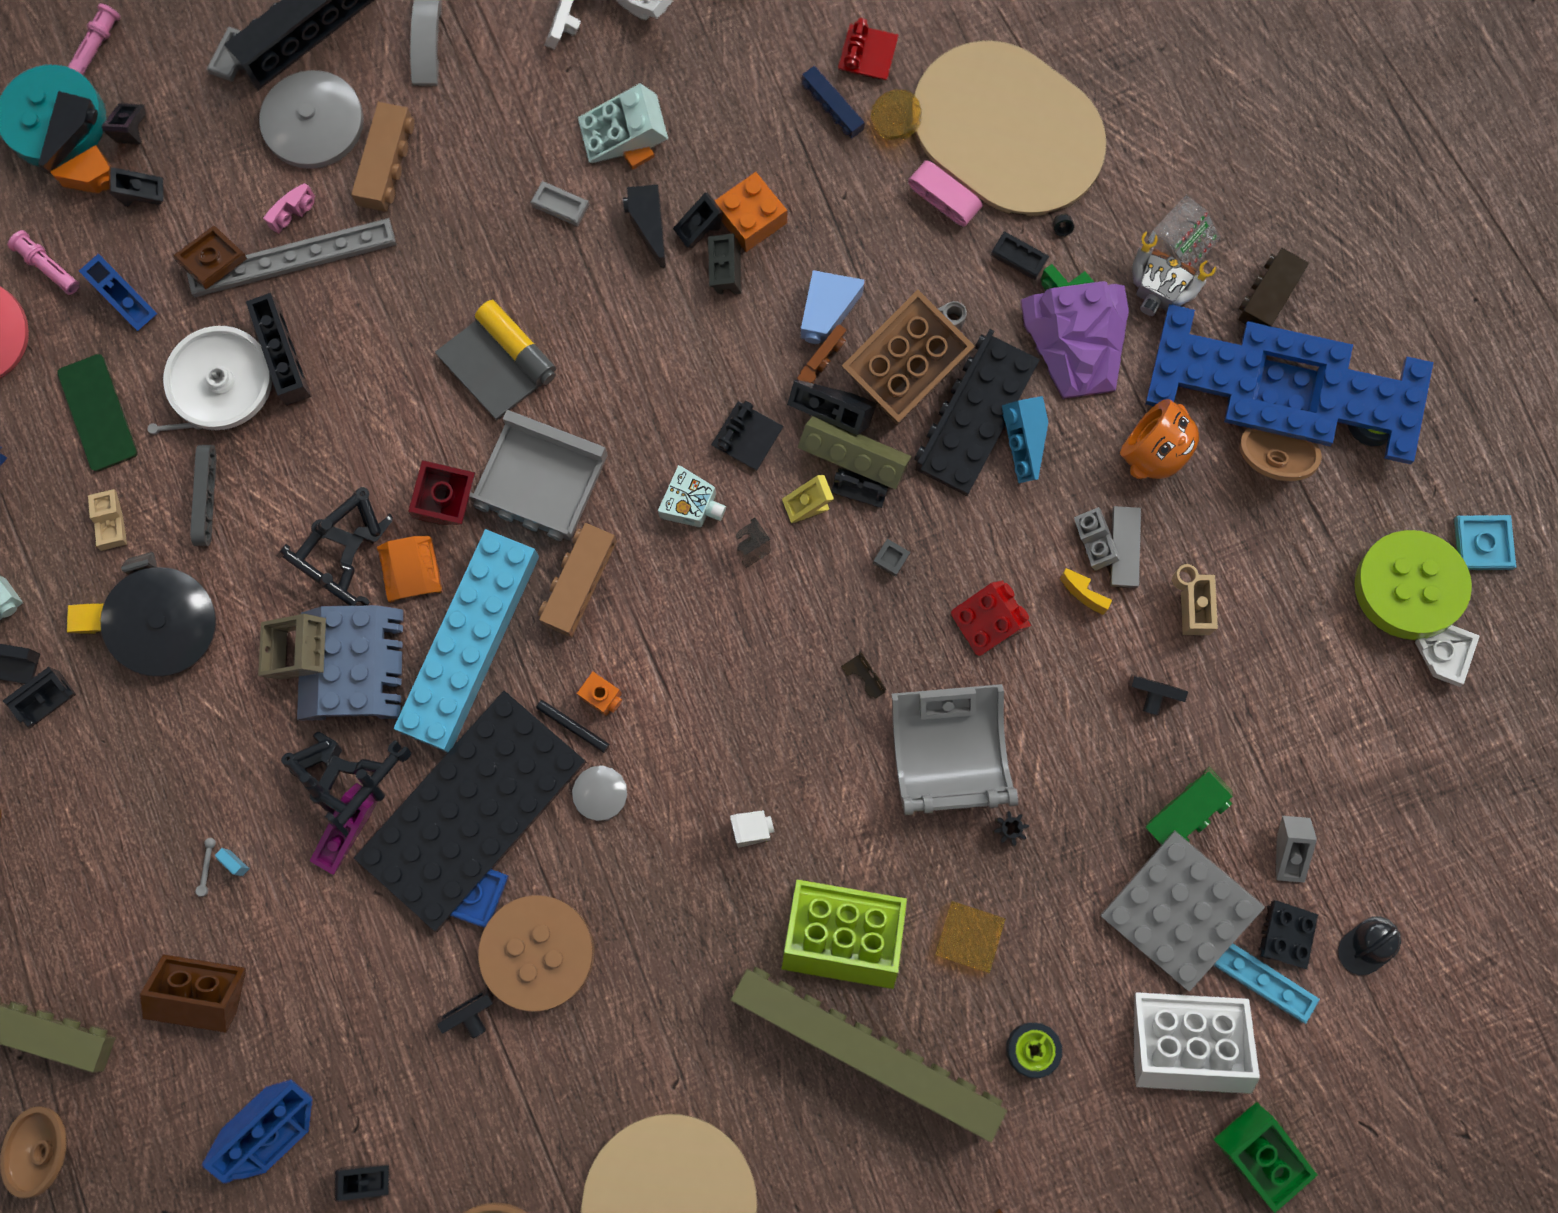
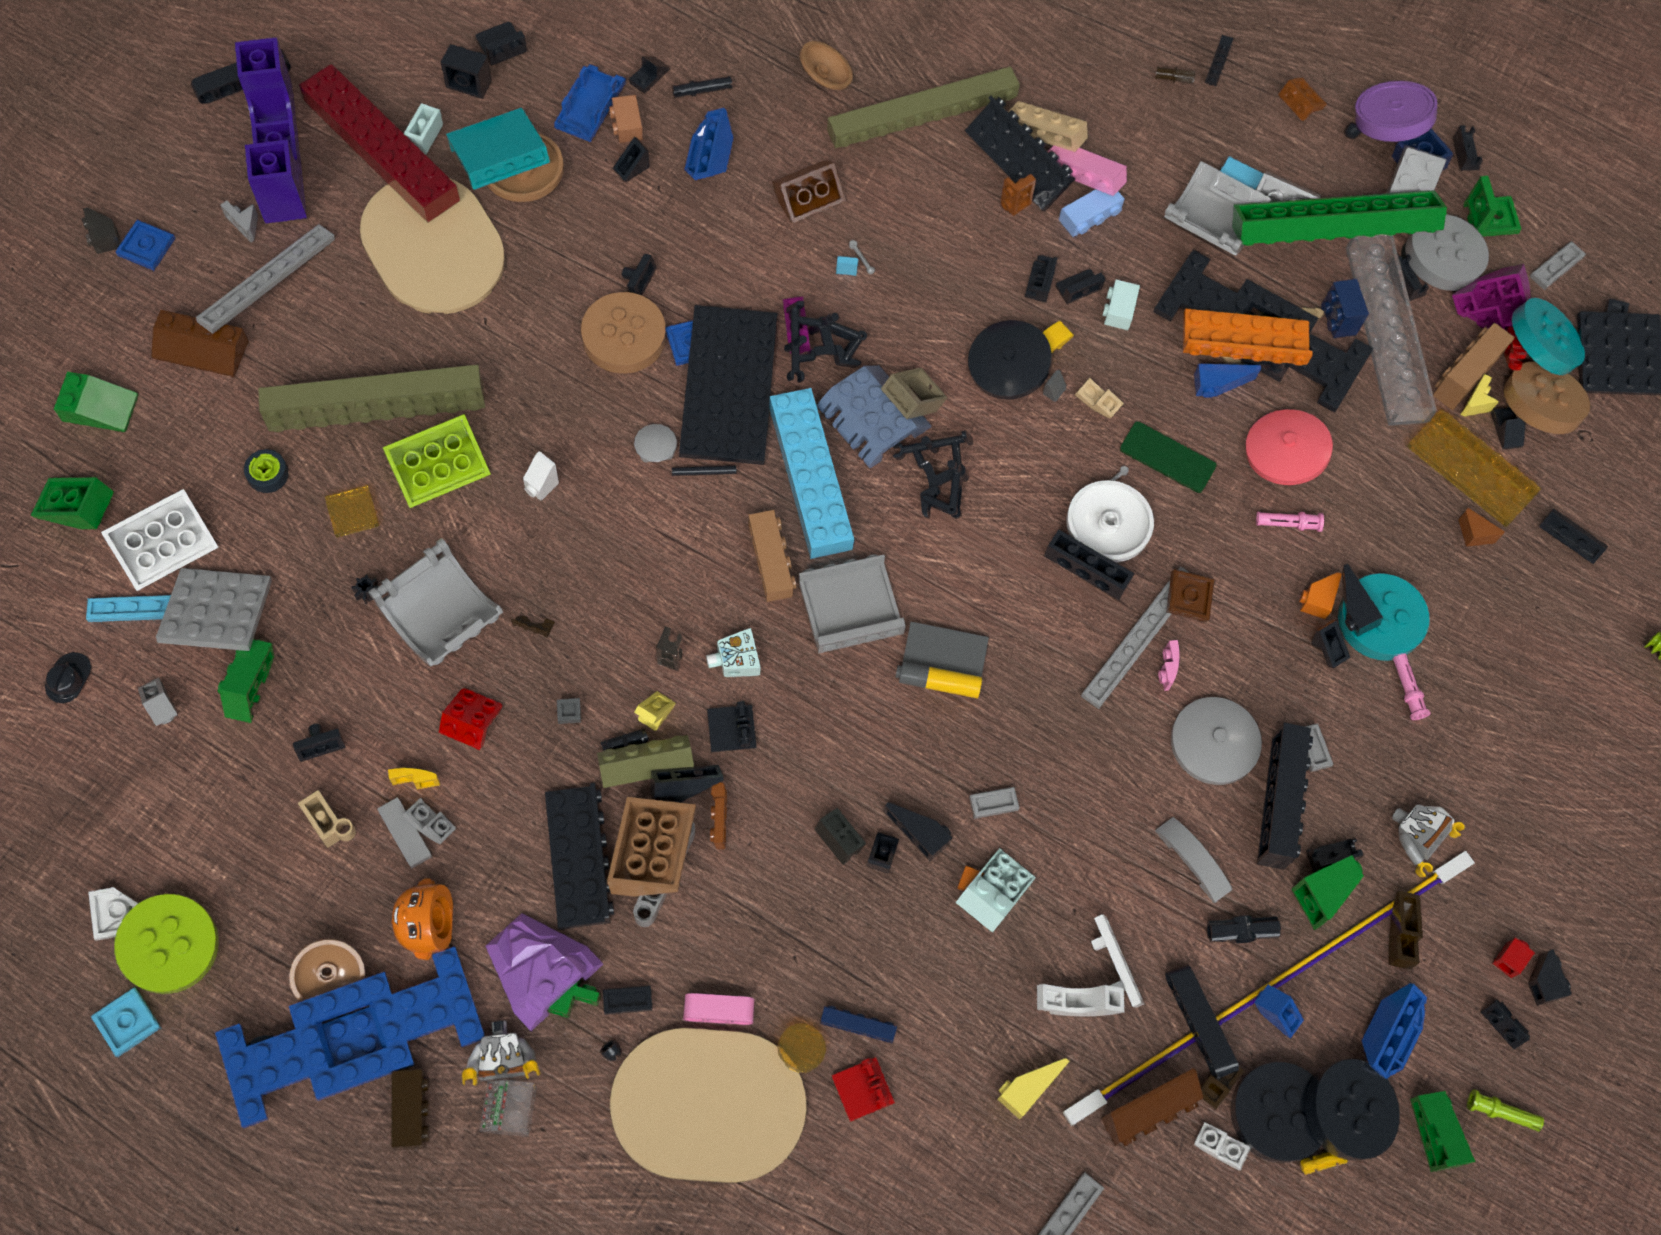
camera: 135 degrees right, 10 degrees down
(117, 292) = (1228, 533): blue slope -> none
(136, 186) = (1280, 605): black slope -> none
(203, 495) = (1053, 449): dark grey beam -> none
(383, 156) = (1142, 745): medium nougat brick -> none
(409, 567) = (884, 492): orange slope -> none
(441, 494) = (902, 544): dark red slope -> none
(600, 694) = (700, 497): orange brick -> none
(751, 211) = (851, 888): orange brick -> none
(828, 304) = (743, 858): light blue slope -> none
(1027, 430) = (531, 863): dark azure slope -> none
(1288, 934) = (130, 645): black hinge -> none

